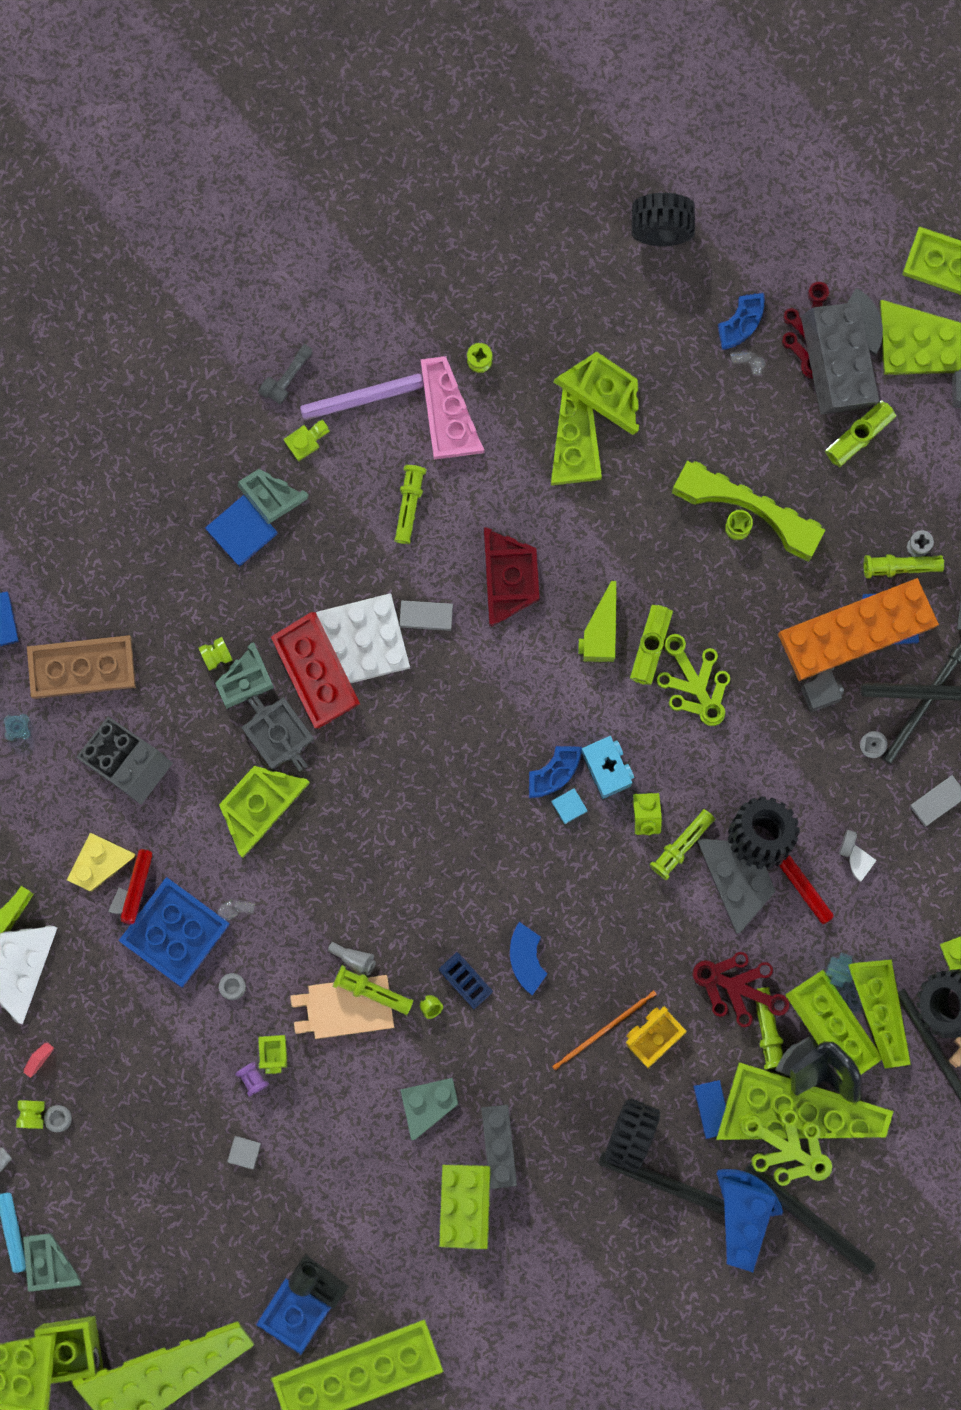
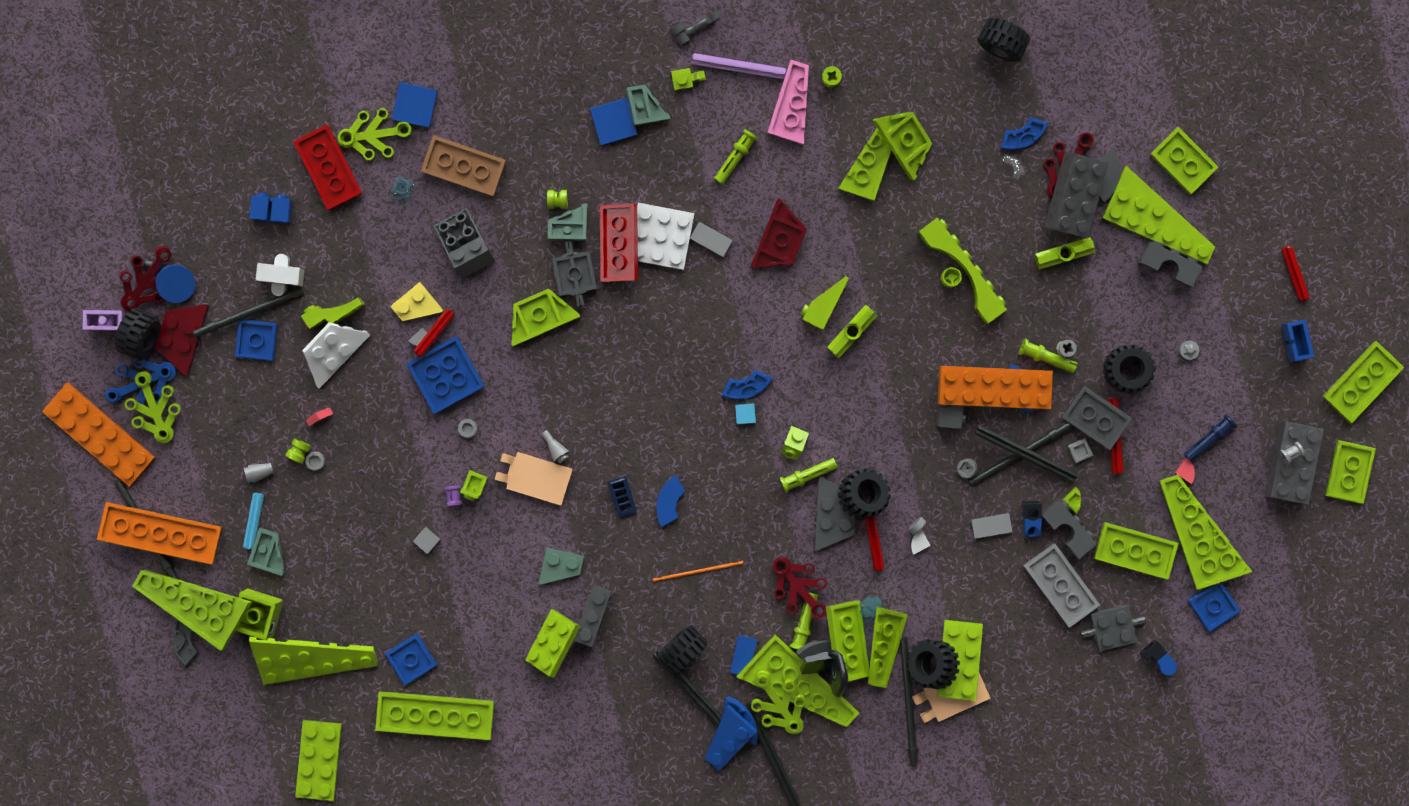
camera: 30 degrees right, 10 degrees up
(234, 907) = (493, 377): clear arm -> none
(315, 1279) = (436, 644): pearl dark grey plate -> none
(360, 986) = (552, 467): lime pin -> none
(431, 1006) = (591, 503): lime hinge -> none
(595, 758) = (778, 389): medium azure brick -> none
(654, 1036) = (728, 592): yellow bracket -> none
(695, 684) = (869, 372): lime plant -> none

